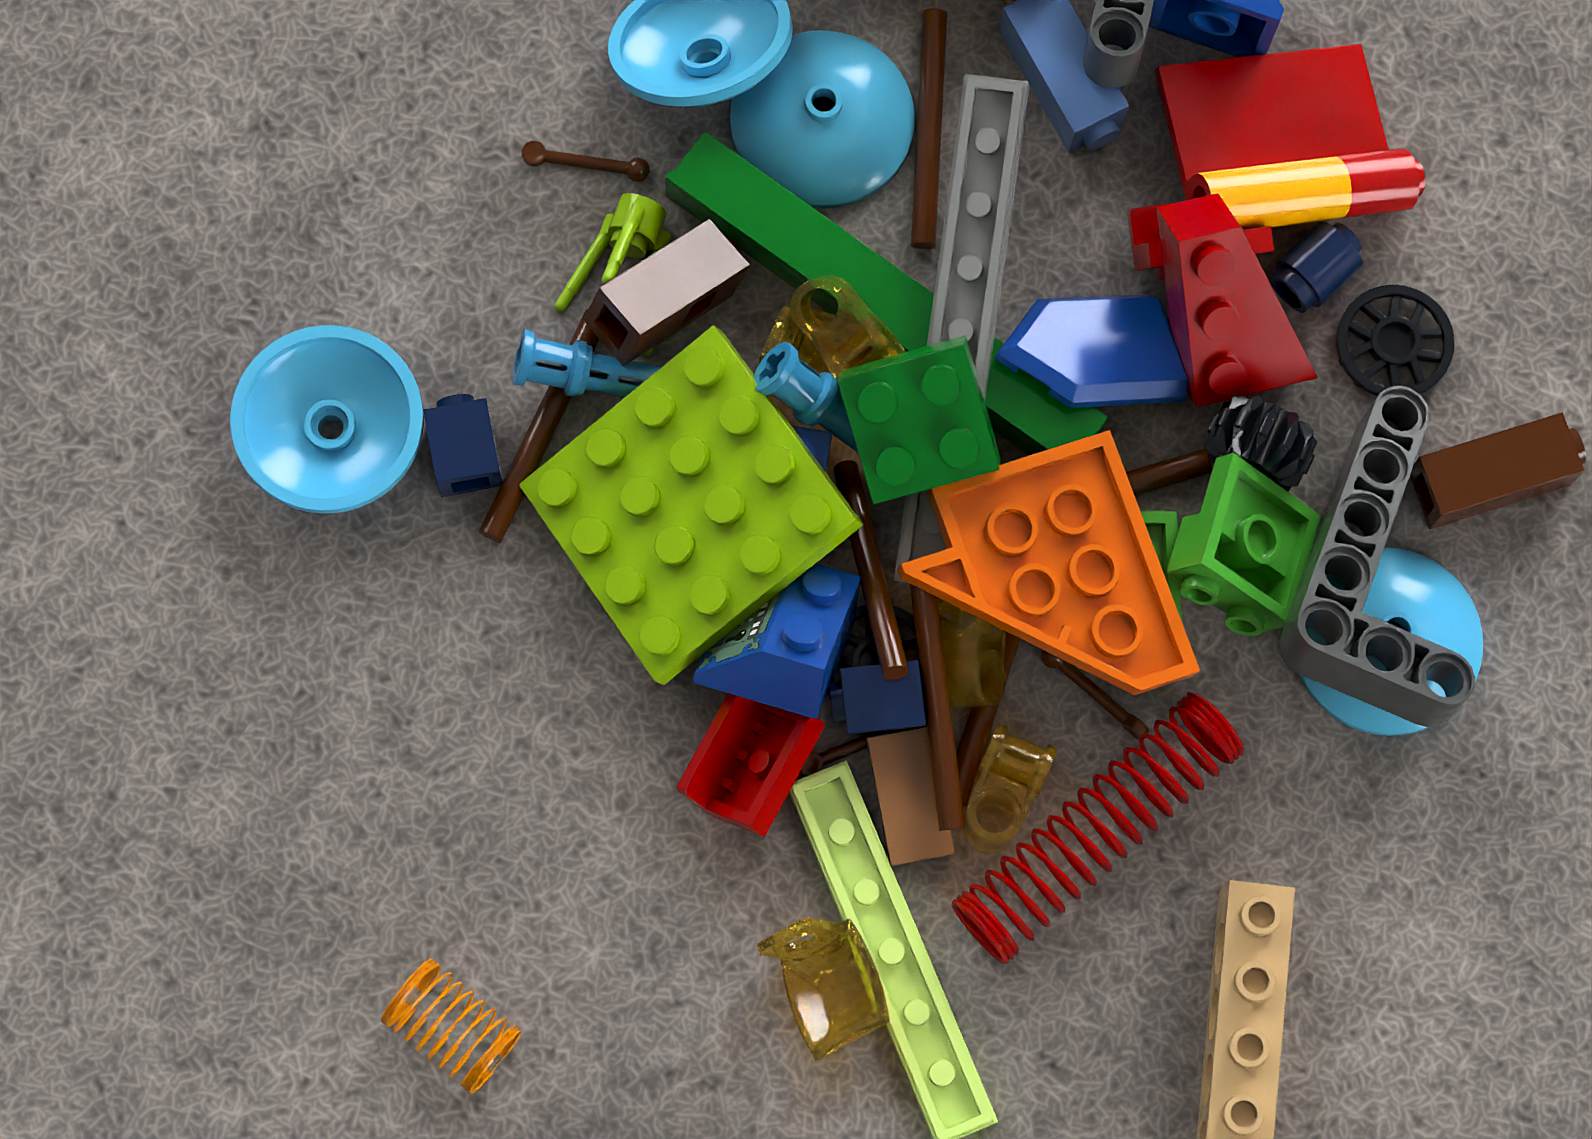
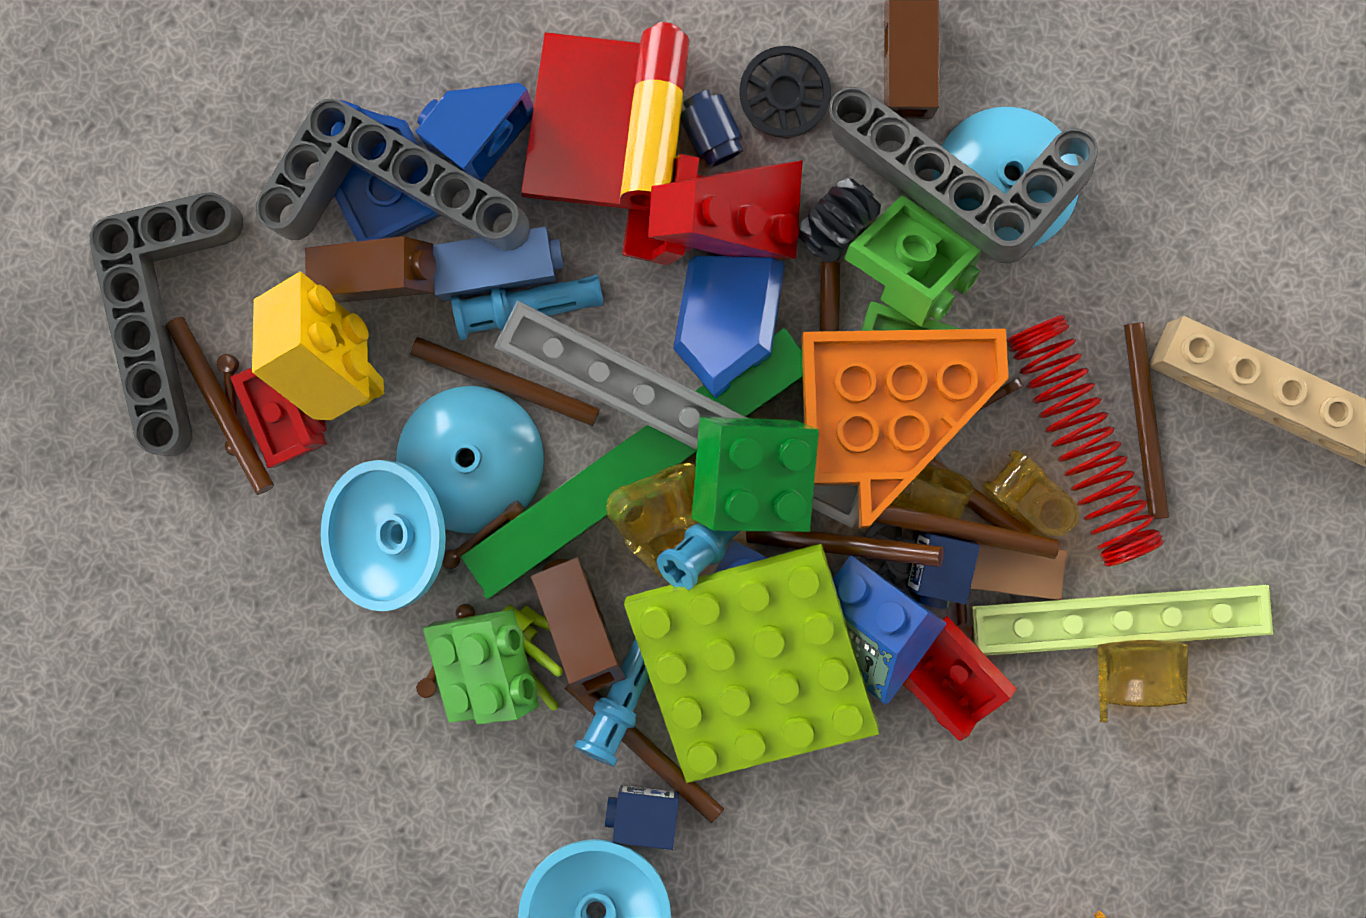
camera: 65 degrees left, 10 degrees up
(583, 197) = (482, 668): none -> bright green plate
(696, 128) = (452, 557): none -> reddish brown hinge
(1040, 138) = (494, 309): none -> dark azure pin
(1149, 906) = (1146, 420): none -> reddish brown bar

